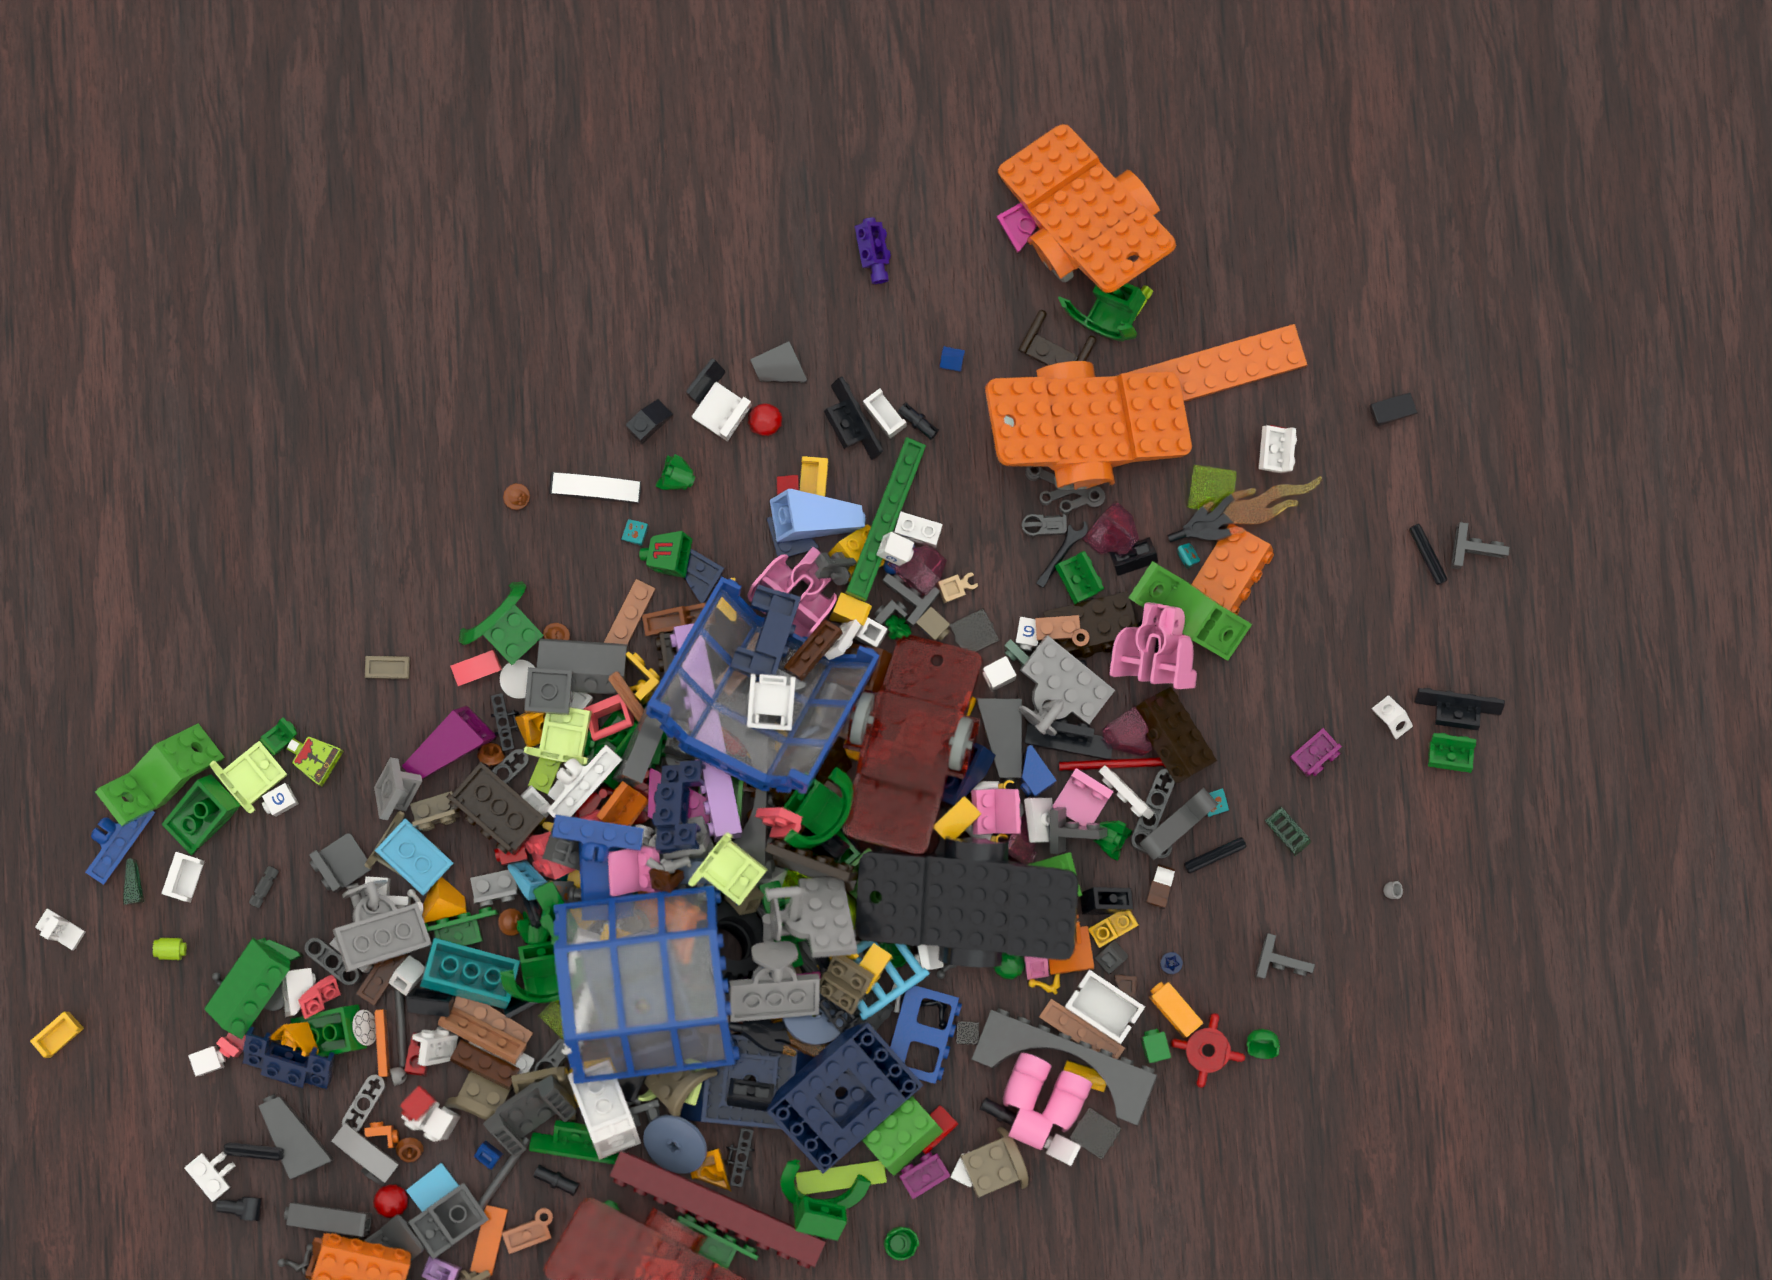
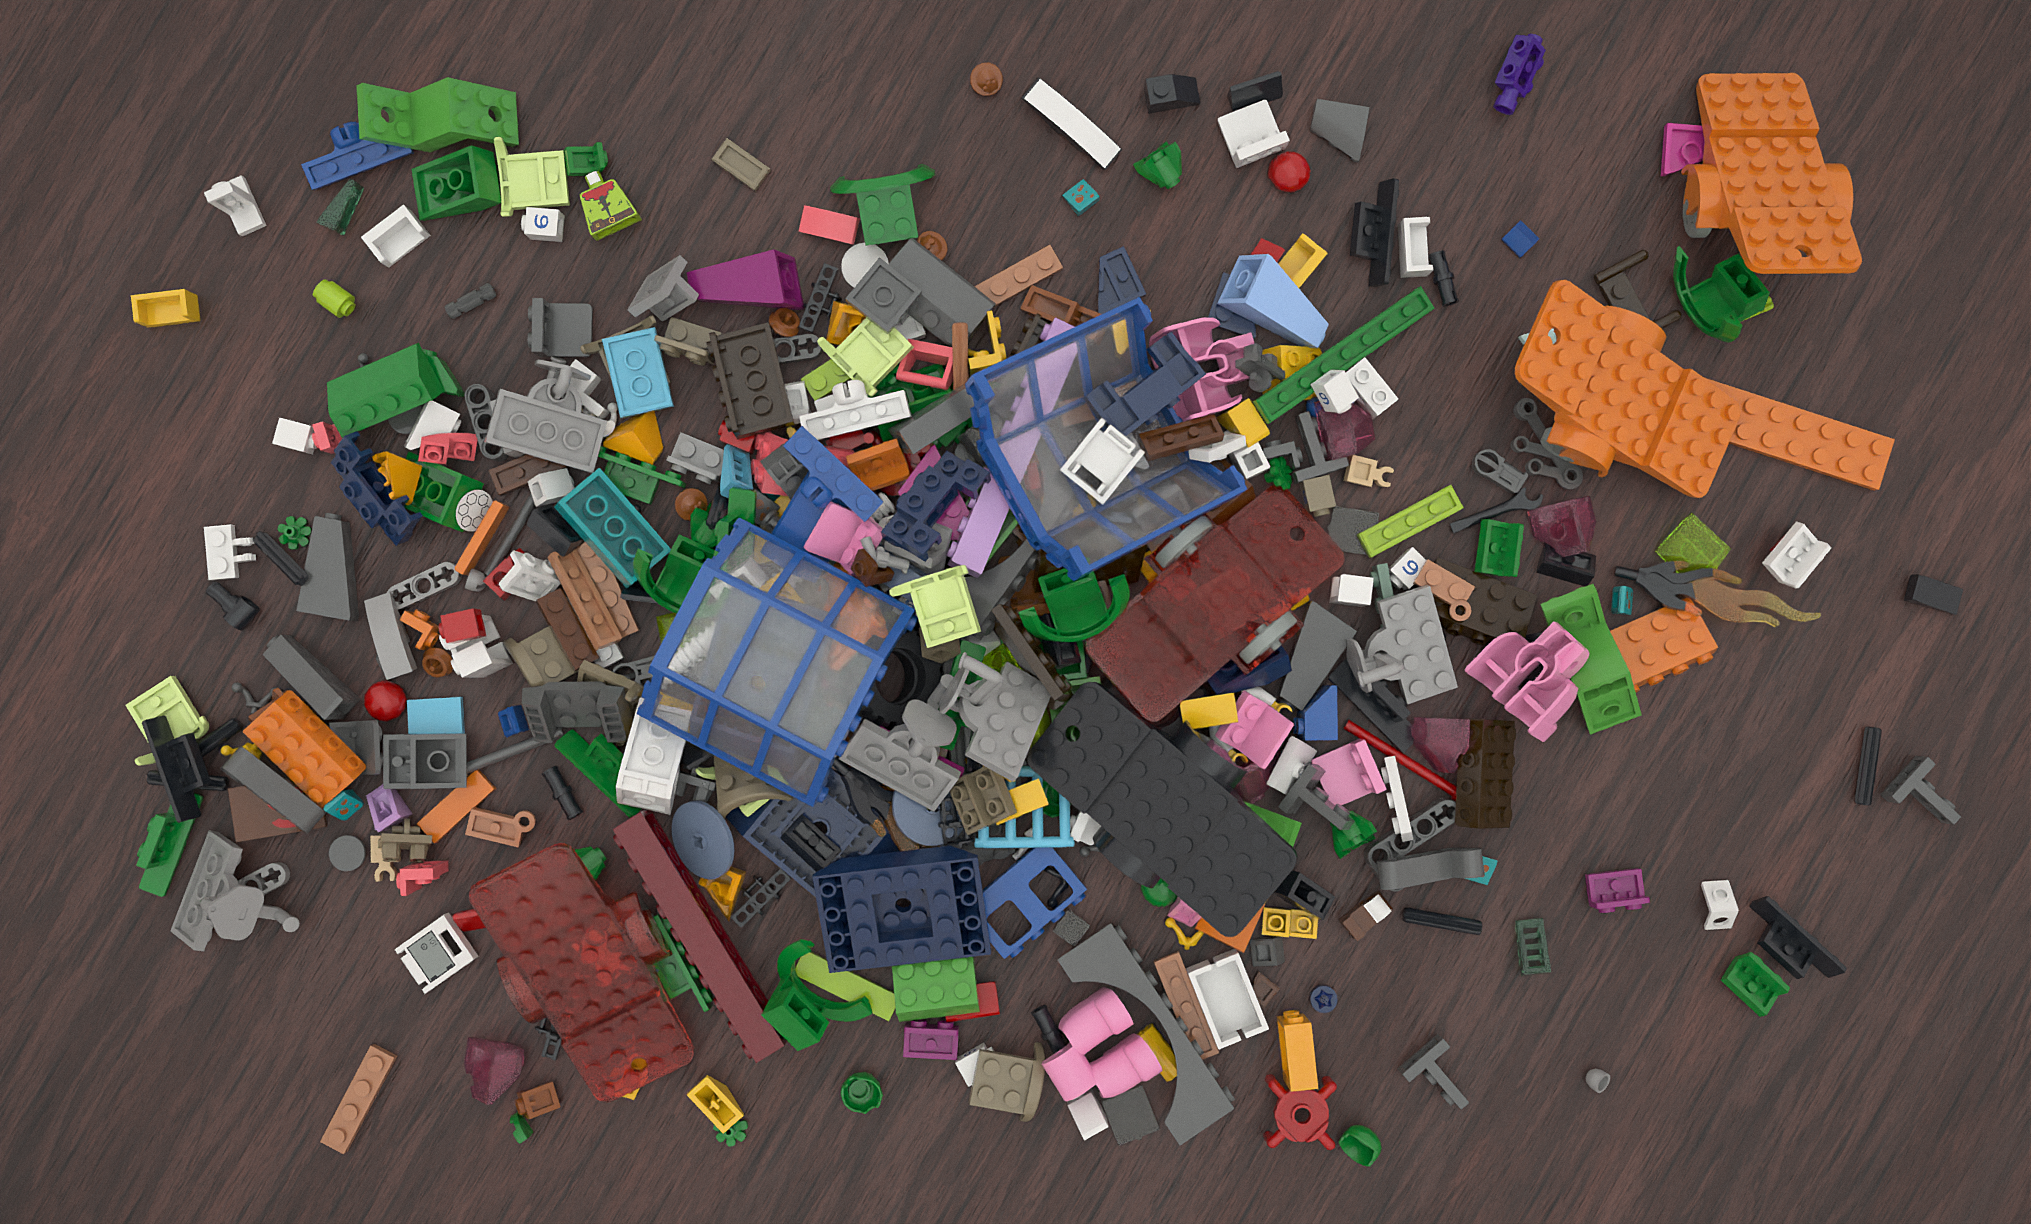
camera: 30 degrees right, 5 degrees up
(254, 1128) = (295, 532): none -> green plant
(668, 553) = (1100, 240): green torso -> none
(780, 820) = (1028, 590): coral bracket -> none
(1008, 599) = (1410, 521): none -> lime tile
(1155, 1046) = (1251, 1074): green brick -> none

